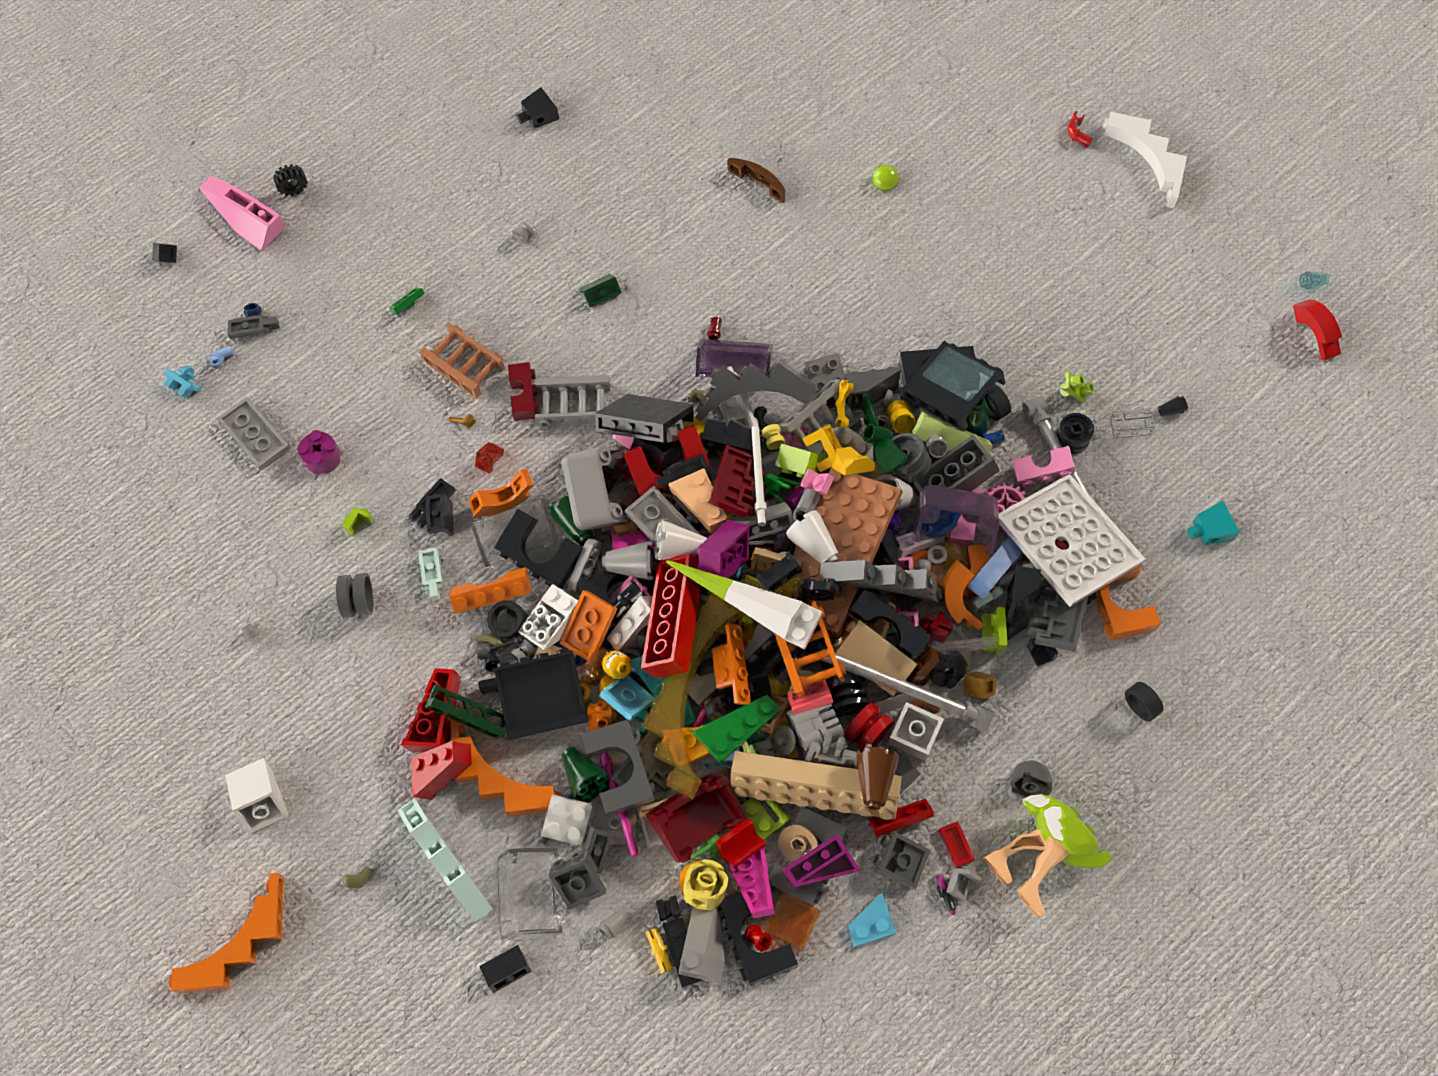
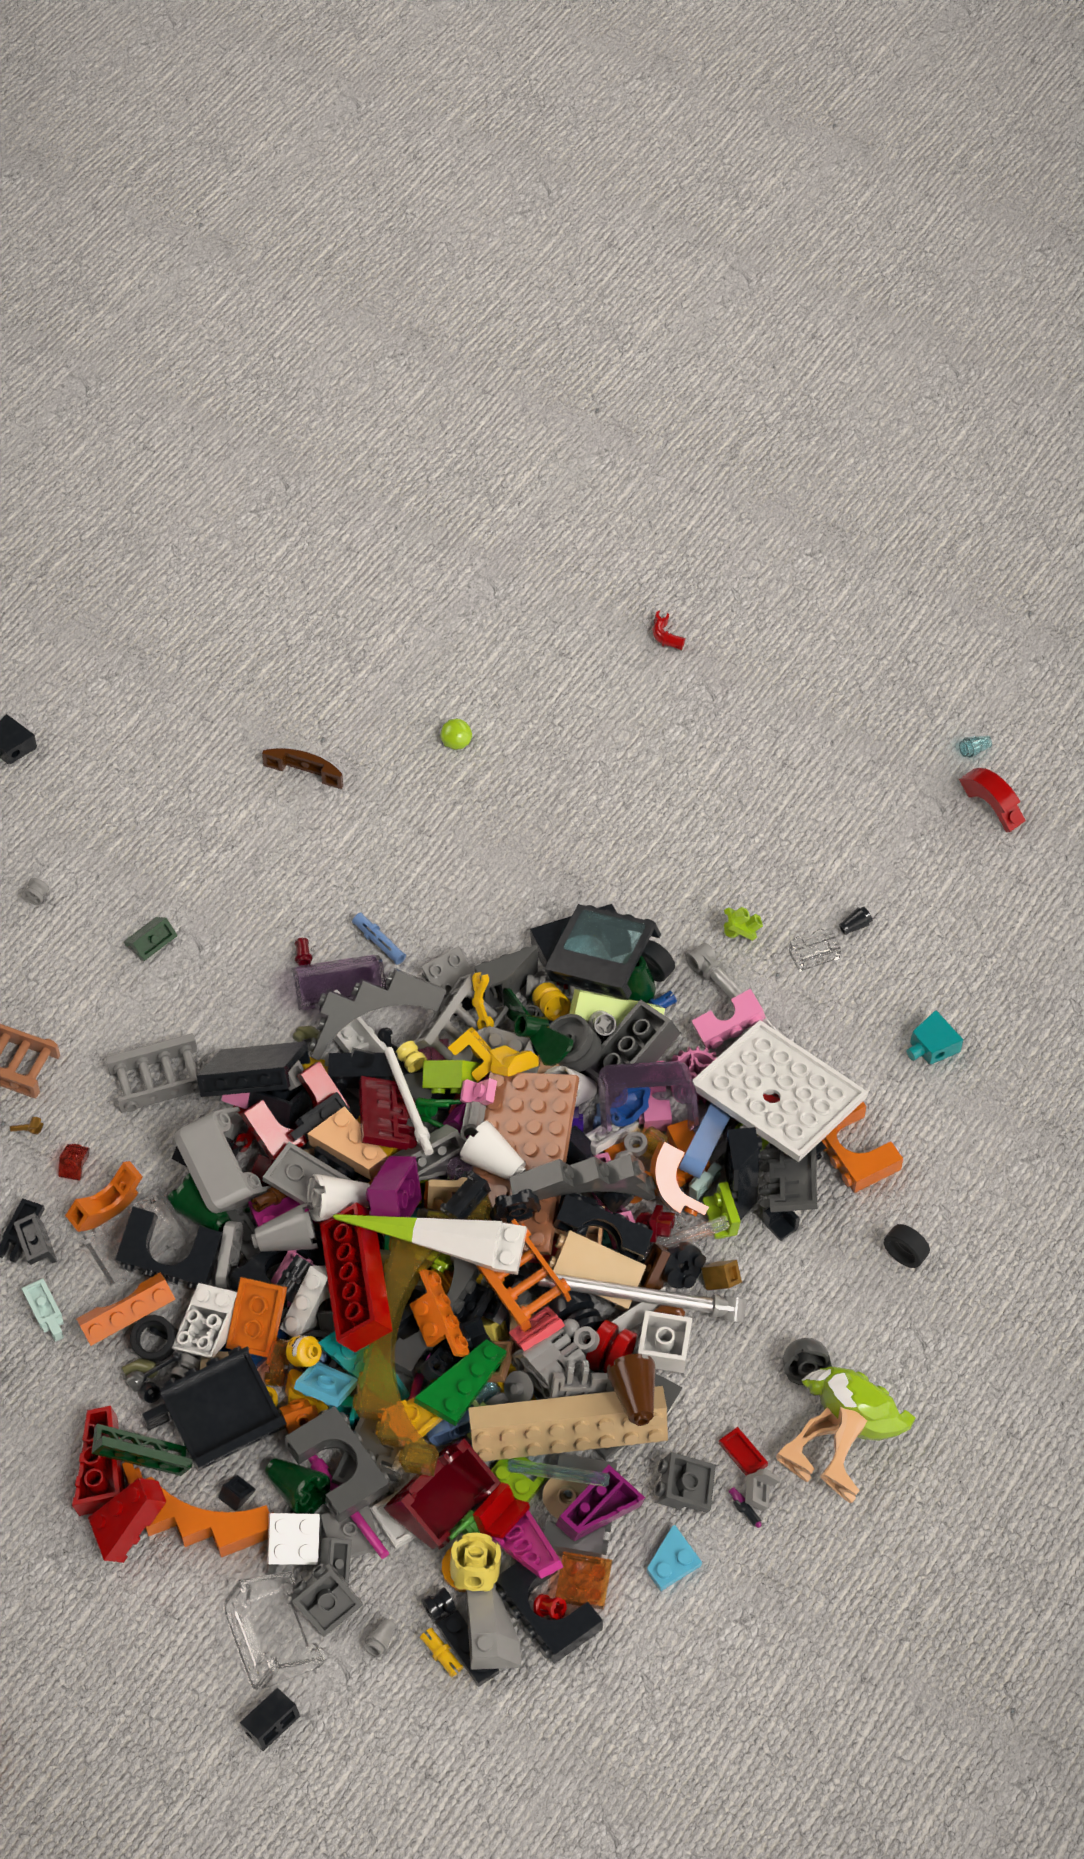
camera: 20 degrees left, 10 degrees down
(357, 880) = (63, 1672): olive arm -> none
(444, 860) = (160, 1611): light aqua arch -> none
(523, 405) = (98, 1091): dark red arch -> none
(535, 765) = (236, 1492): none -> black slope
(774, 325) = (362, 923): none -> medium blue pin
(795, 827) = (558, 1472): none -> clear light blue axle
(839, 705) = (581, 1335): none -> light grey plate
(905, 816) = (678, 1435): red plate -> none
(1076, 432) = (755, 972): black wheel -> none
(1166, 165) = (733, 623): white arch -> none

